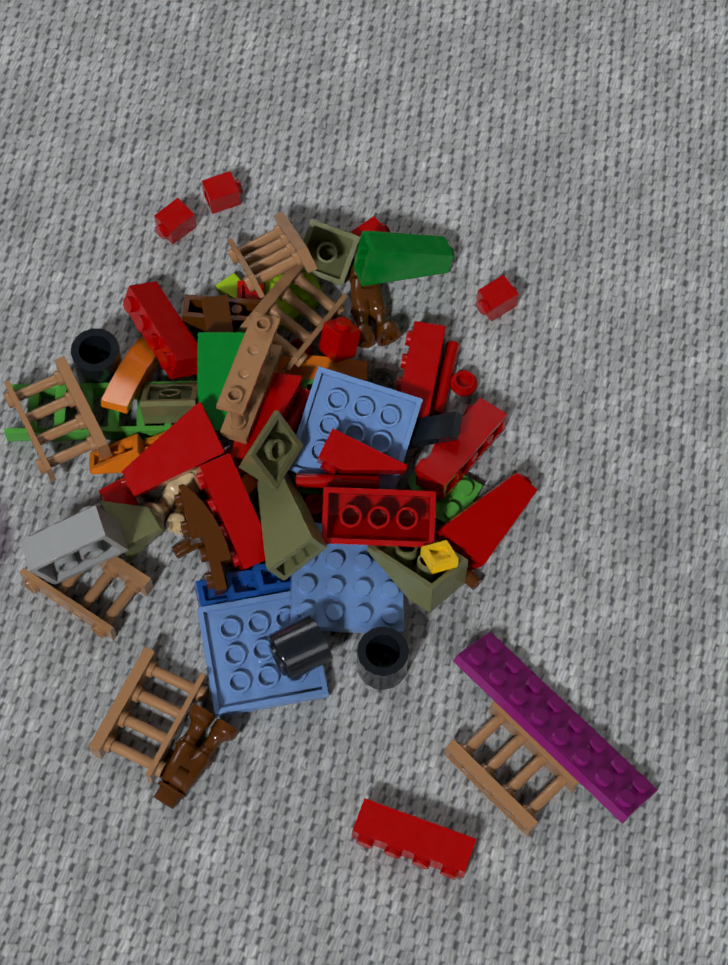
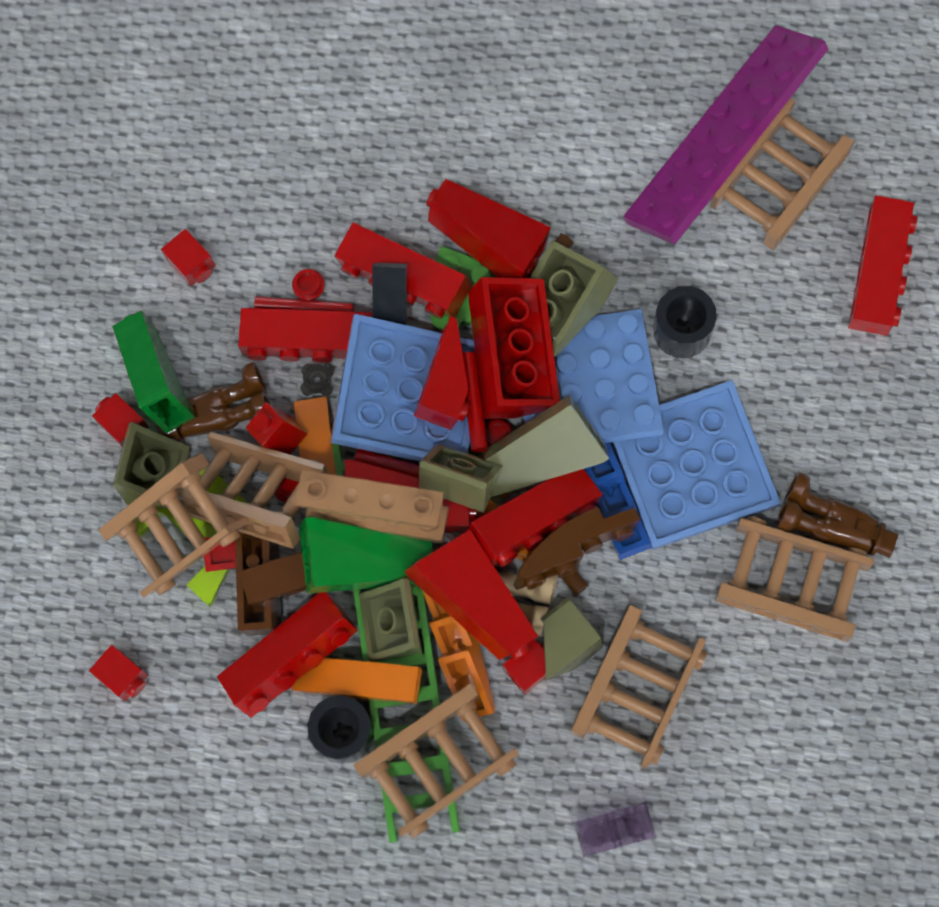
camera: 90 degrees left, 10 degrees up
(74, 545) = (617, 694): light grey brick -> none
(222, 192) = (67, 619): red brick -> none
(299, 648) = (695, 411): black piece -> none
(439, 556) = (557, 269): yellow tile -> none

